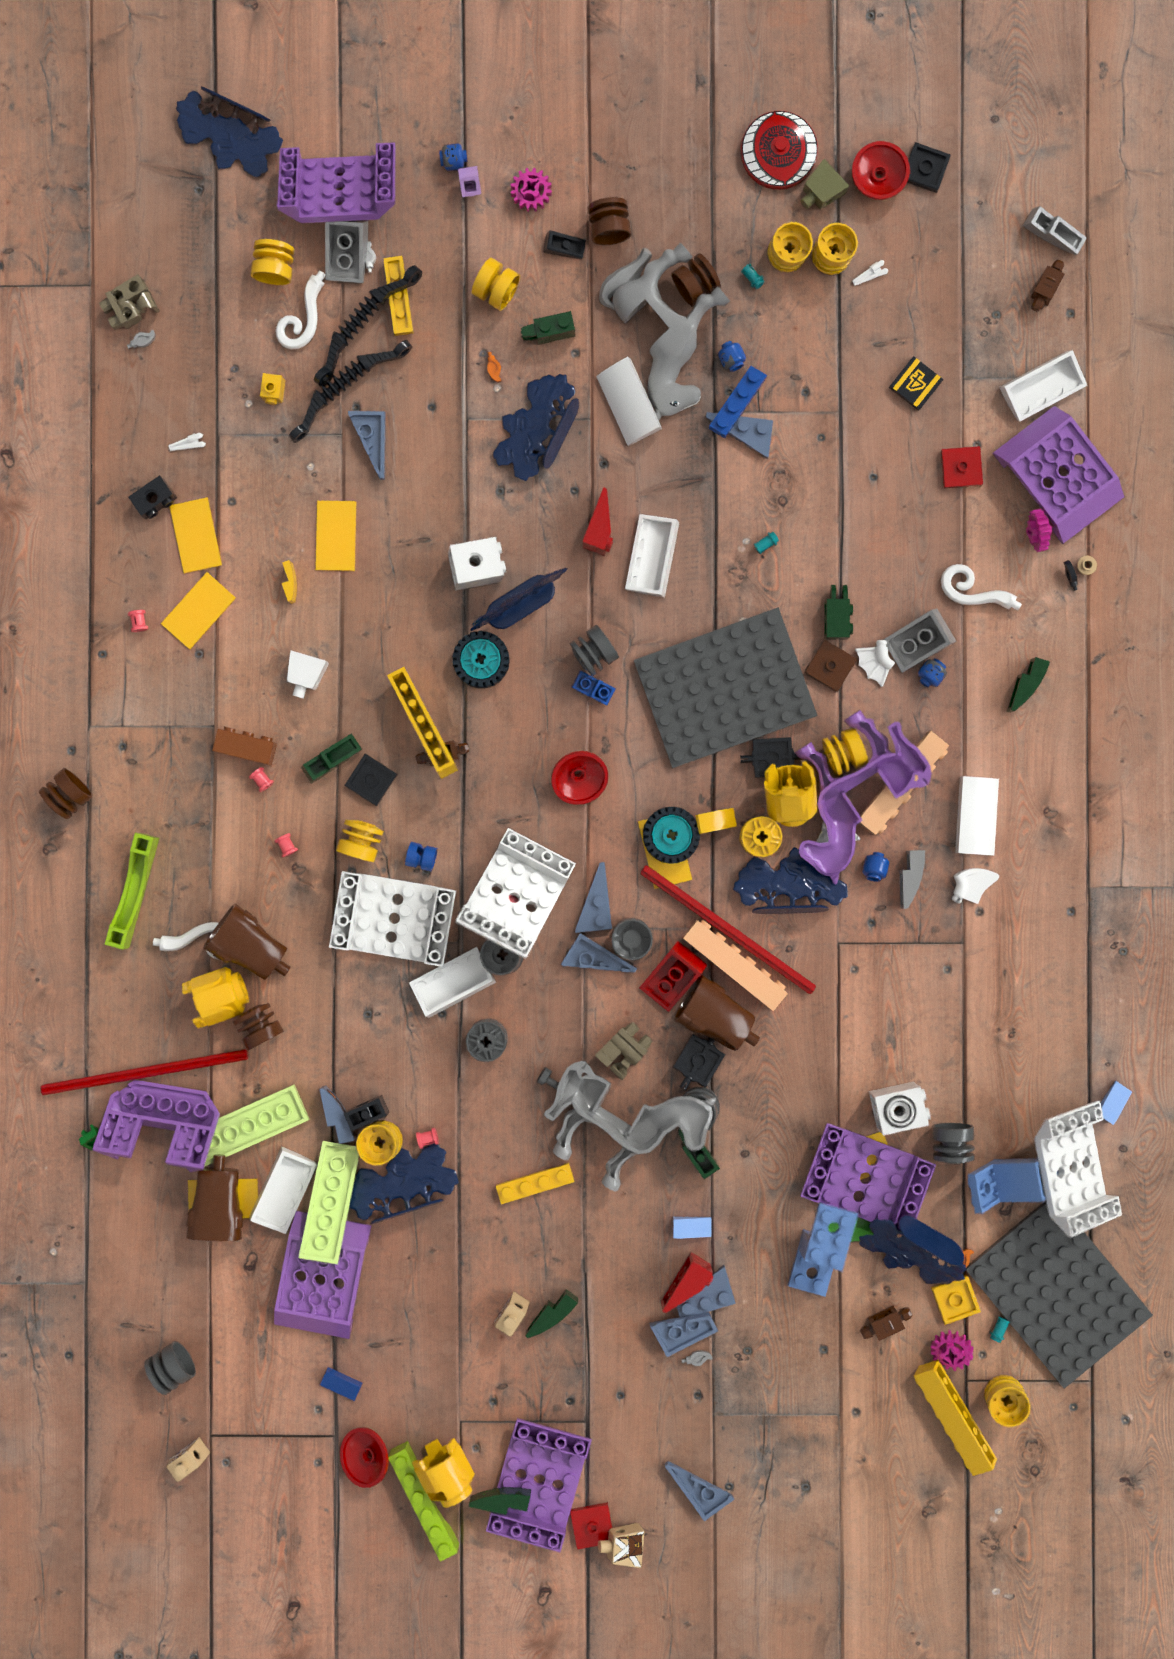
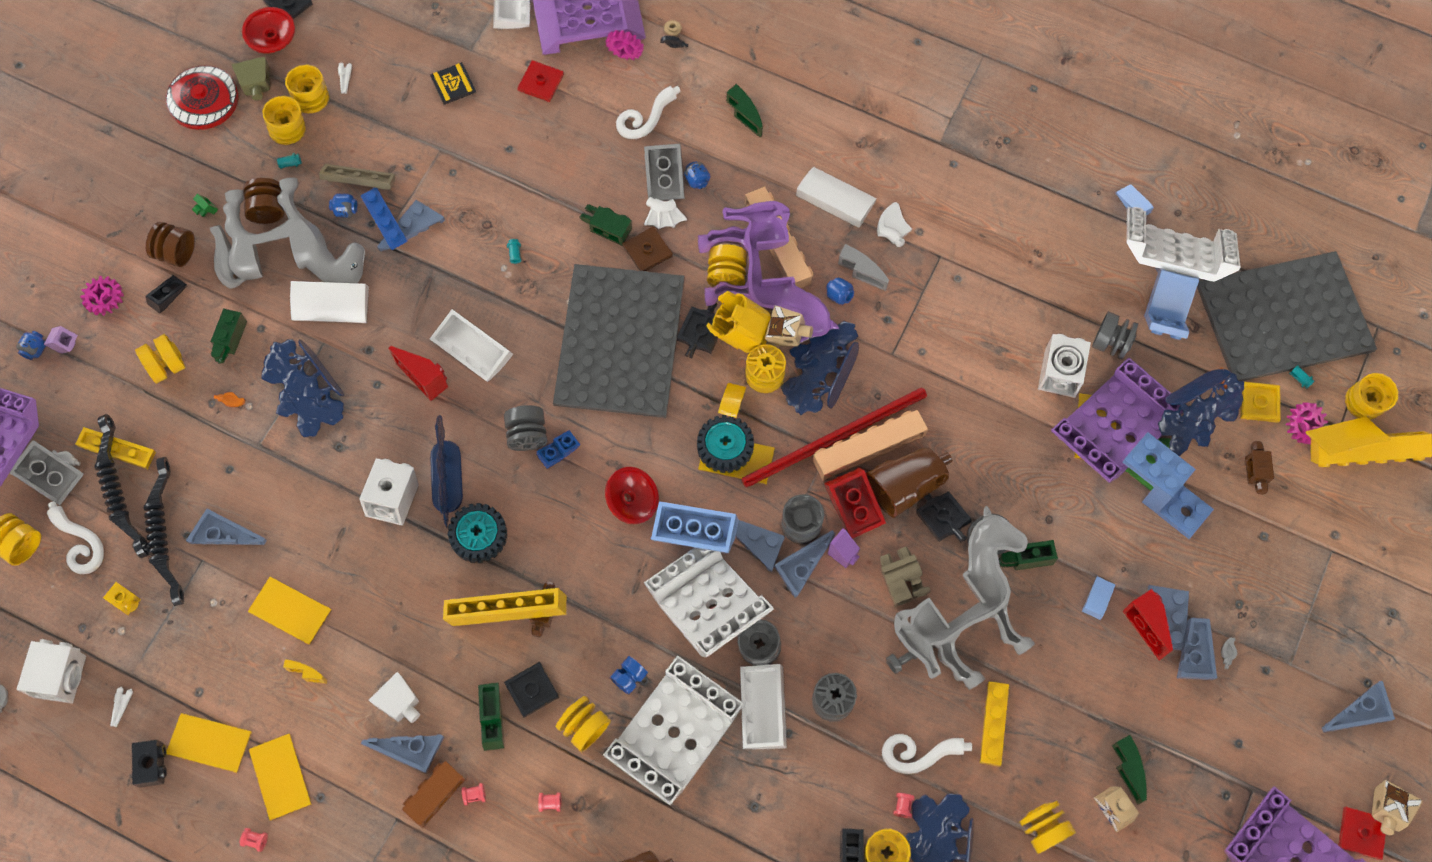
camera: 65 degrees left, 20 degrees down
(182, 371) = (52, 671): none -> white brick
(270, 708) = (412, 751): none -> sand blue wing
(464, 1265) = (1047, 826): none -> yellow wheel
(495, 1153) = (952, 746): none -> white plant
(575, 849) = (695, 527): none -> light blue slope
(622, 988) = (844, 549): none -> medium lavender slope
(666, 225) = (203, 205): none -> green tile
(768, 351) = (357, 176): none -> dark tan plate
(805, 839) = (786, 328): none -> torso
(953, 1393) = (1347, 435): none -> yellow piece

